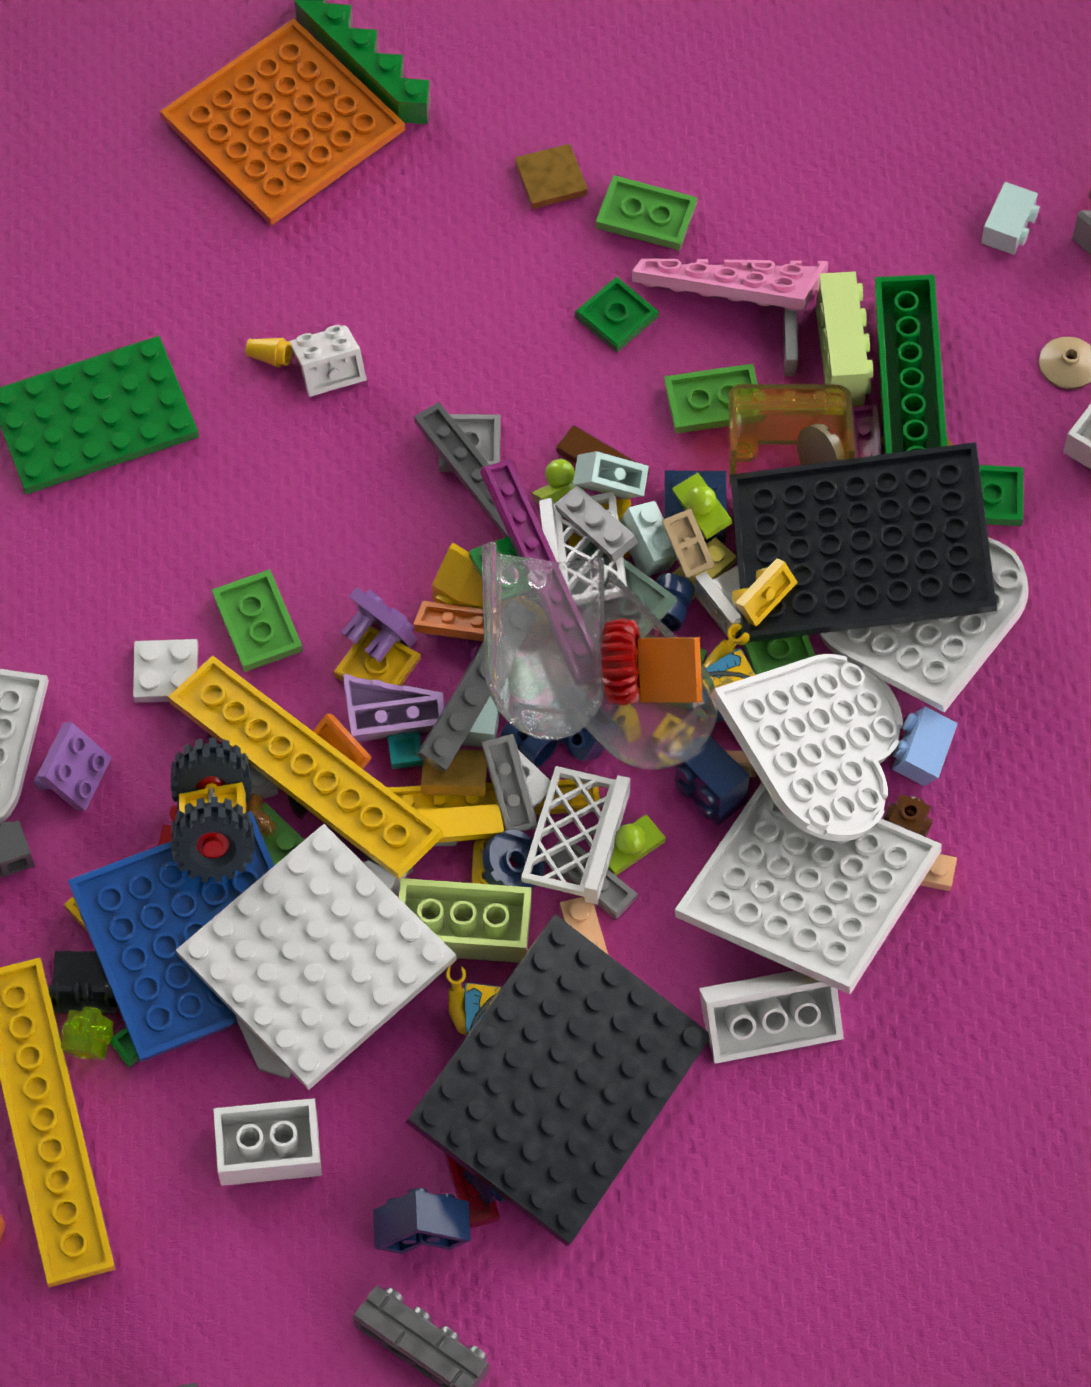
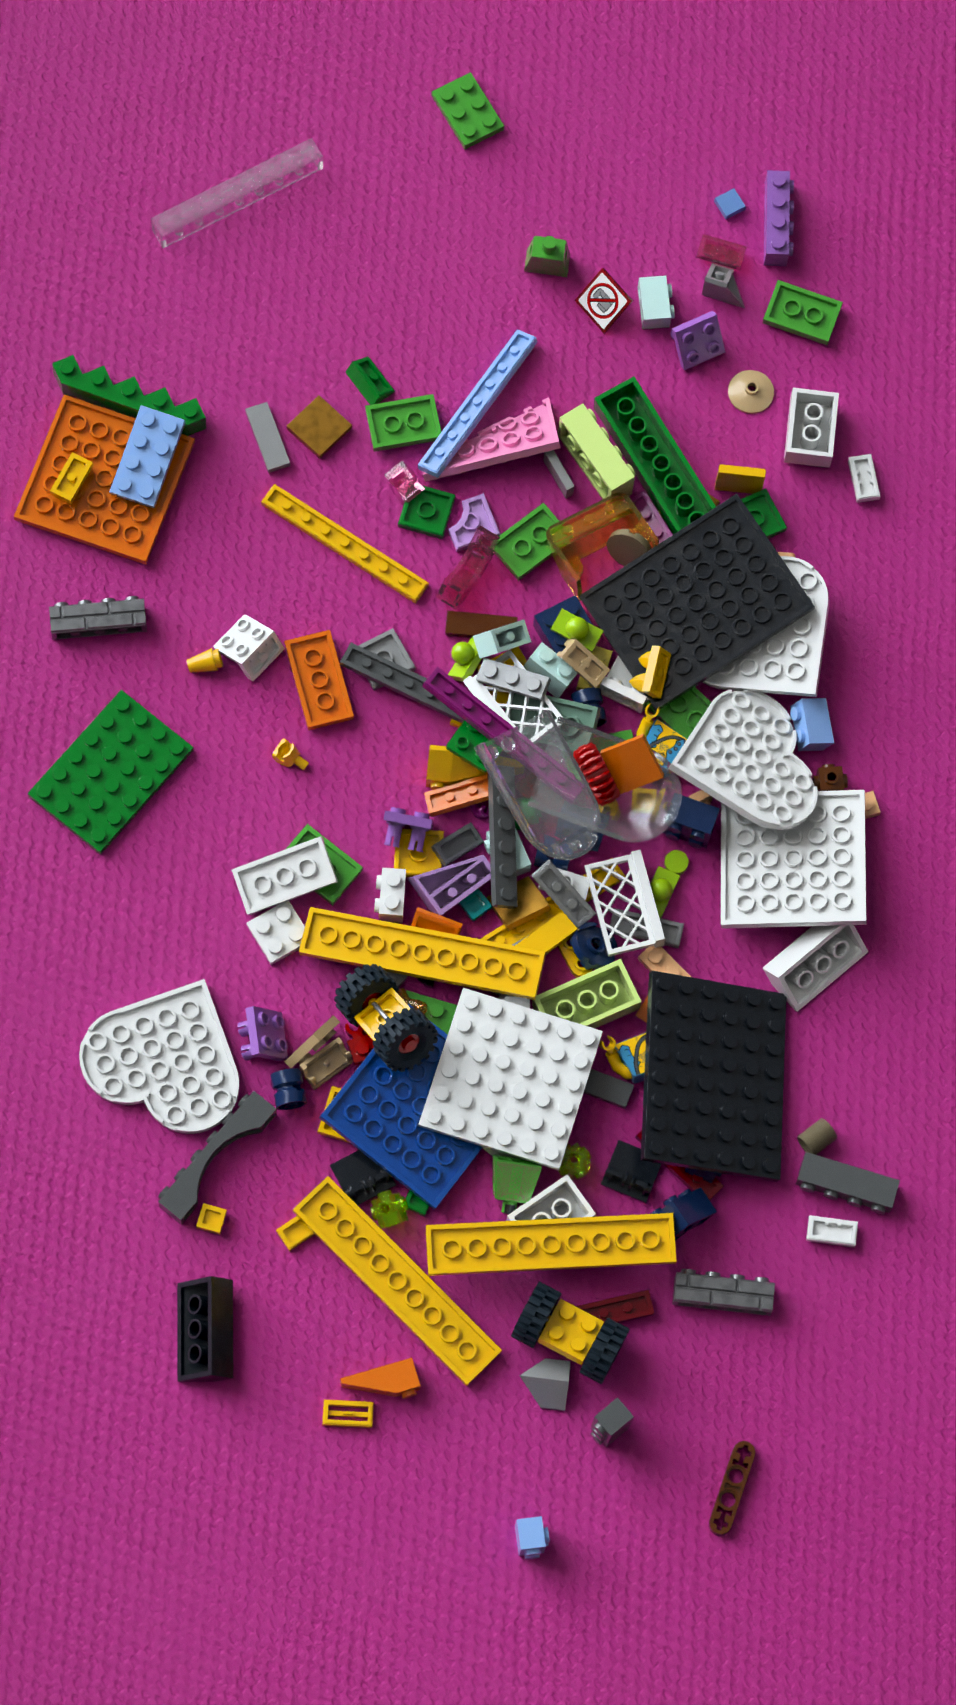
camera: 35 degrees left, 10 degrees up
(62, 838) = (288, 1088): none -> dark blue wheel
(120, 799) = (317, 1040): none -> tan plate
(121, 835) = (326, 1063): none -> tan hinge
(146, 1336) = (548, 1383): none -> light grey slope
(181, 252) = (98, 618): none -> flat silver brick
(203, 1285) = (570, 1332): none -> plate
(206, 609) = (284, 875): none -> white plate
(242, 1167) = (550, 1244): none -> yellow plate
(244, 98) = (71, 478): none -> yellow plate
(250, 1074) = (513, 1181): none -> bright green torso
(263, 1289) = (621, 1308): none -> dark red plate
(297, 488) = (288, 754): none -> yellow piece
(315, 690) = (392, 893): none -> white brick
(336, 1093) = (578, 1169): none -> clear neon green brick
(338, 113) = (147, 456): none -> light blue plate
(382, 428) = (319, 680): none -> orange plate
(396, 1146) = (629, 1174): none -> black hinge
(428, 674) = (457, 844): none -> dark grey tile
(430, 1032) = (608, 1088): none -> dark grey tile
(487, 161) = (267, 437): none -> light grey tile
(504, 306) = (345, 543): none -> yellow tile
(600, 1342) = (832, 1231): none -> white plate
(608, 267) = (405, 481): none -> clear pink panel
(609, 401) = (470, 568): none -> clear pink arch
(637, 155) = (369, 380): none -> green slope
(648, 1219) = (817, 1137): none -> dark tan piece
(653, 1294) = (847, 1182): none -> dark grey brick
(662, 353) = (475, 513): none -> lavender tile
(671, 821) = (676, 862): none -> lime tile
(740, 228) = (477, 403): none -> light blue tile
(915, 117) = (548, 256): none -> bright green torso
(950, 188) = (603, 300): none -> piece
(996, 439) = (739, 479): none -> yellow tile
(1035, 276) = (698, 340): none -> medium lavender plate

